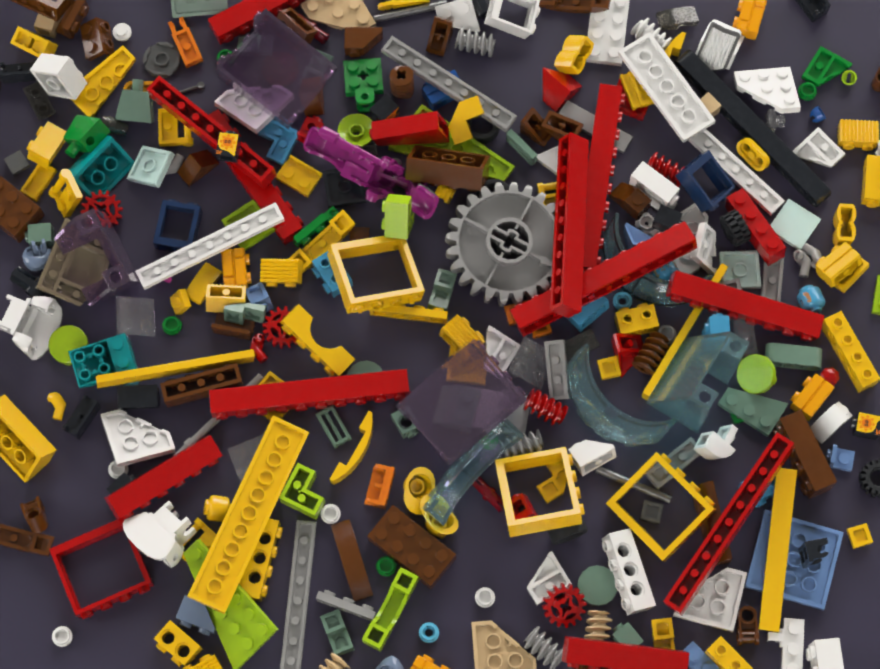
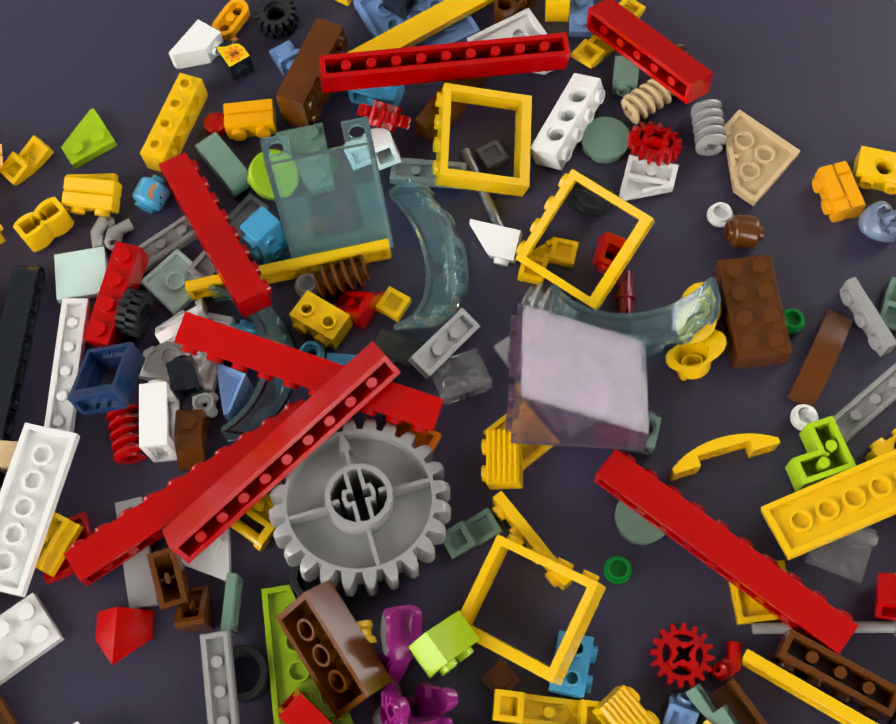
camera: 130 degrees left, 5 degrees down
(298, 324) = (667, 630): yellow arch -> none
(341, 440) = (733, 498): sand green tile -> none
(353, 341) = (617, 570): none -> green plate
(380, 486) = (729, 396): orange hinge -> none
(391, 609) = (801, 281): lime arch -> none
(429, 626) = (806, 225): medium azure plate -> none
(460, 595) = (743, 231): none -> reddish brown head
(465, 111) = (245, 696): yellow tile -> none
(500, 347) = (480, 413): white wing -> none
(545, 407) = (492, 315): red piece -> none
(574, 54) = (65, 651): yellow brick -> none
(733, 467) = (384, 116): none -> red gear
(753, 155) = (33, 371): yellow plate -> none
(830, 422) = (258, 81): white brick -> none

